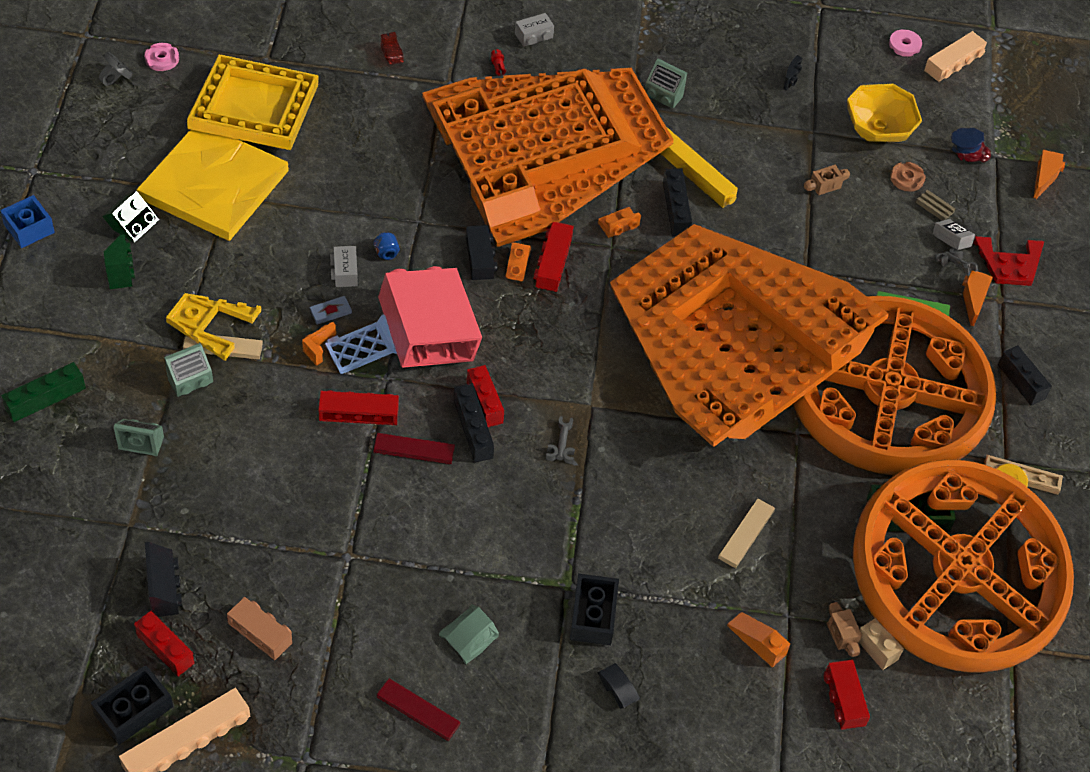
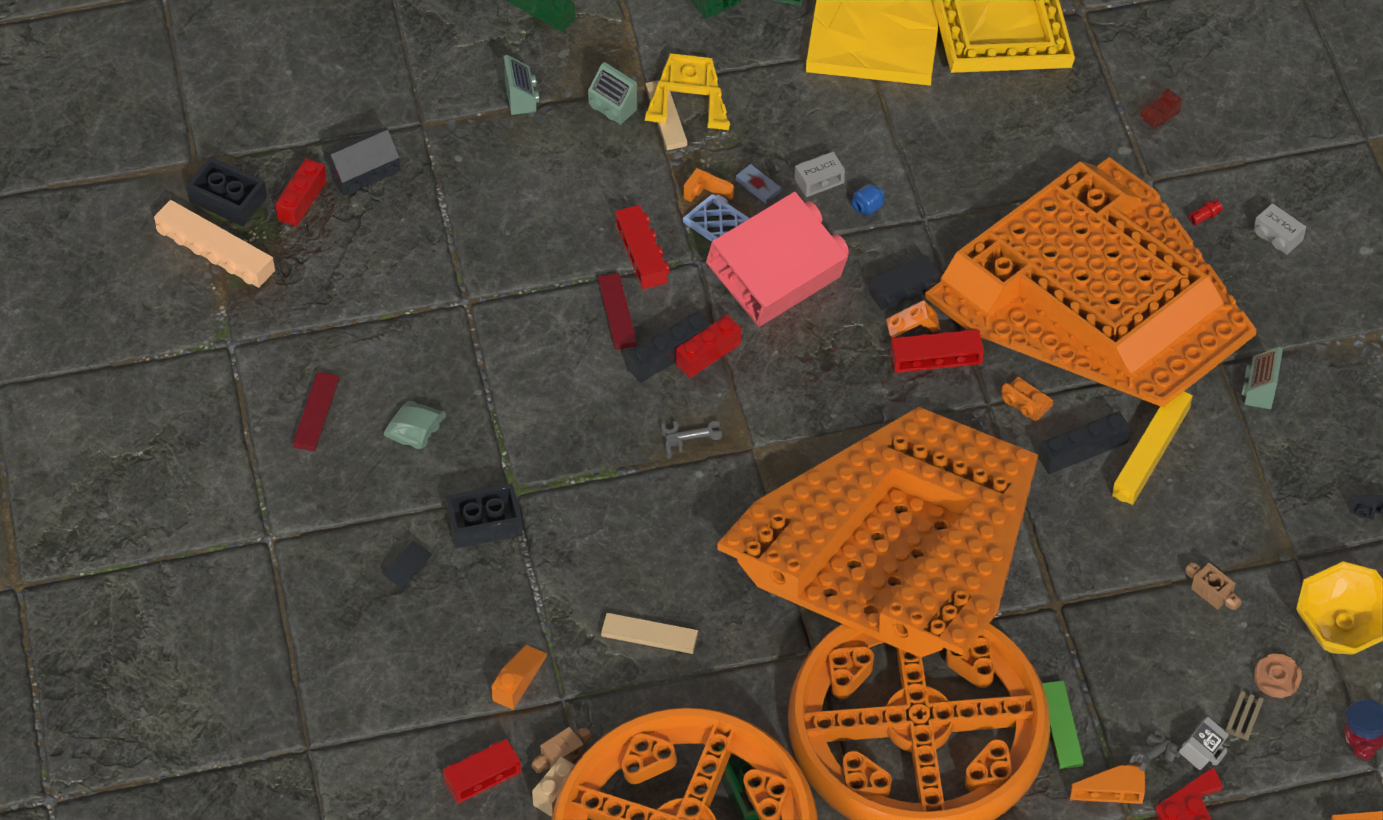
camera: 75 degrees right, 0 degrees up
(260, 628) = (349, 257): nougat brick -> none

